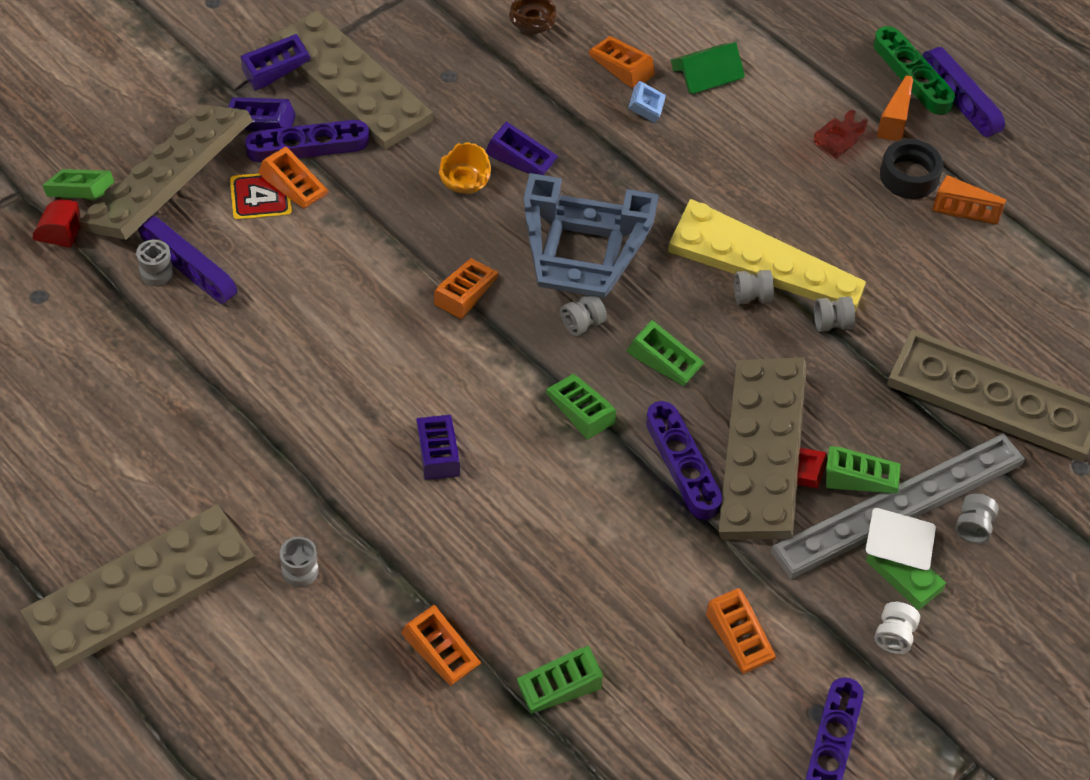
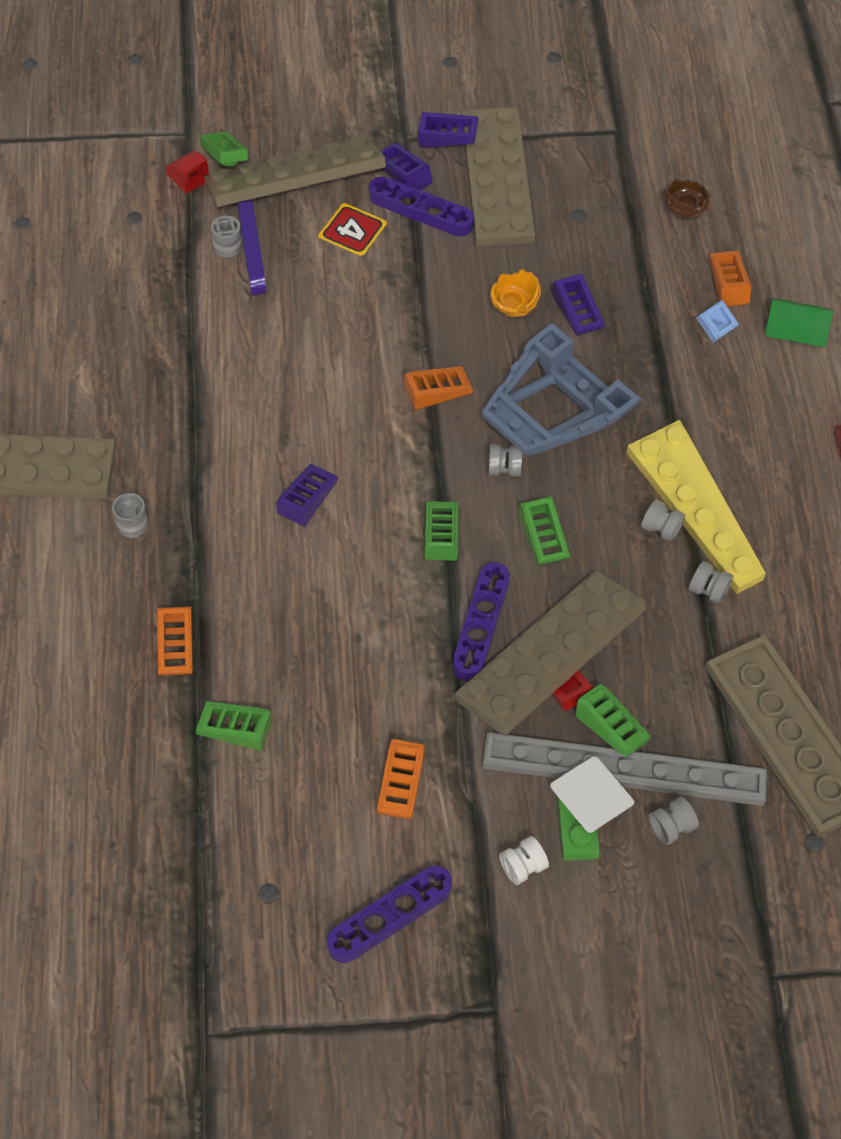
camera: 40 degrees right, 5 degrees up
(293, 166) = (383, 209): orange slope -> none

